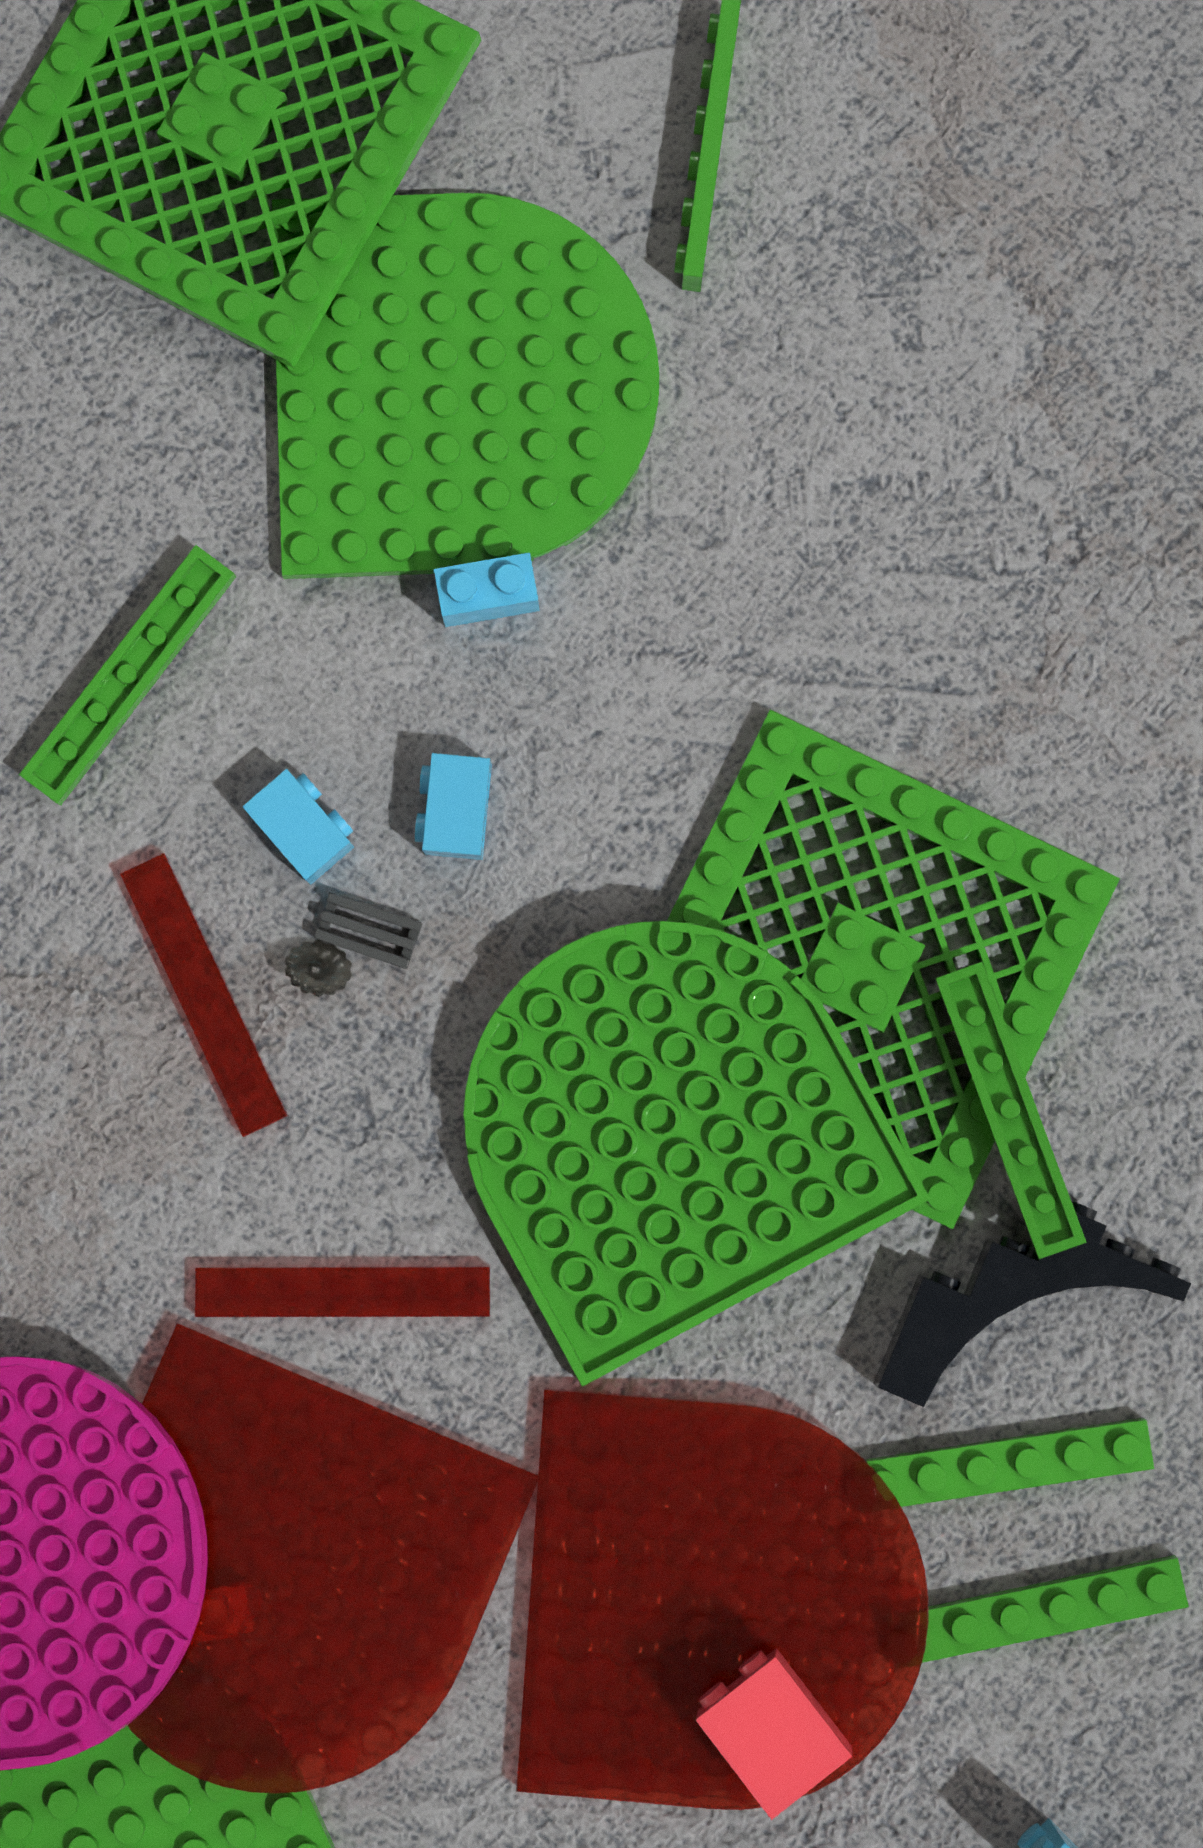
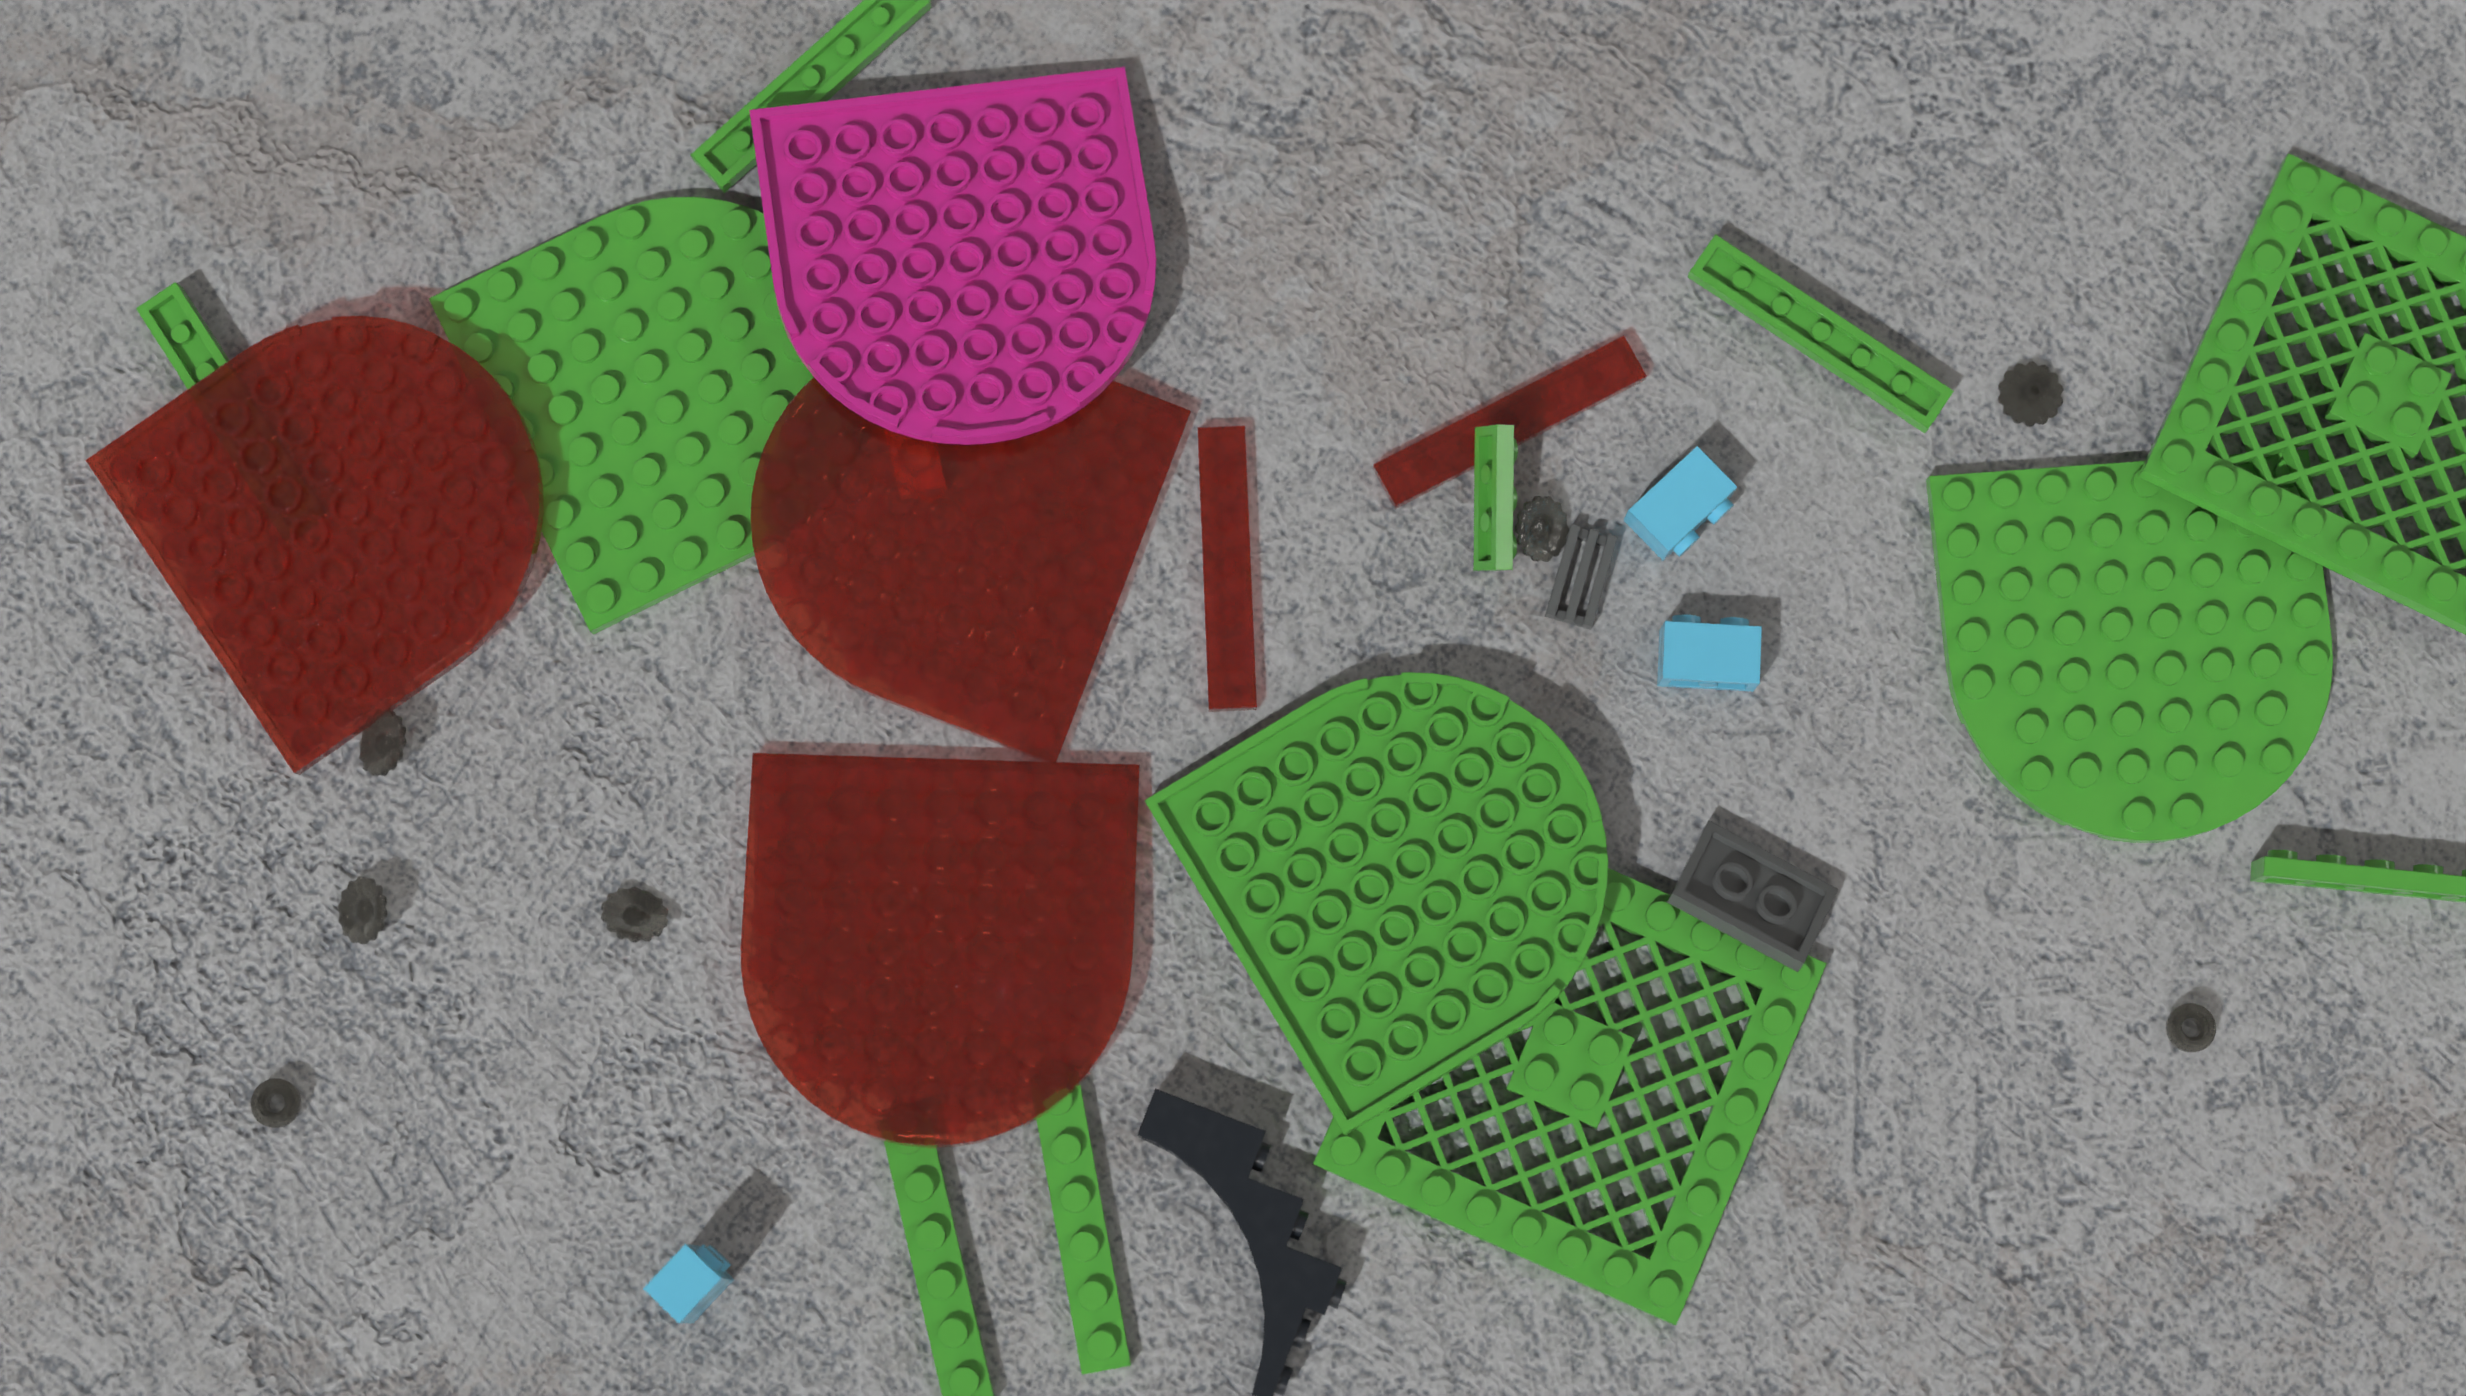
camera: 85 degrees right, 5 degrees down
(200, 469) = (2030, 394): none -> clear smoke piece
(285, 1015) = (1494, 498): none -> bright green plate
(487, 589) = (1928, 676): medium azure brick -> none
(702, 778) = (1753, 896): none -> dark grey plate
(772, 1732) = (821, 990): coral brick -> none
(844, 346) = (2205, 1027): none -> clear smoke plate
(1010, 1110) = (1436, 1212): bright green plate -> none

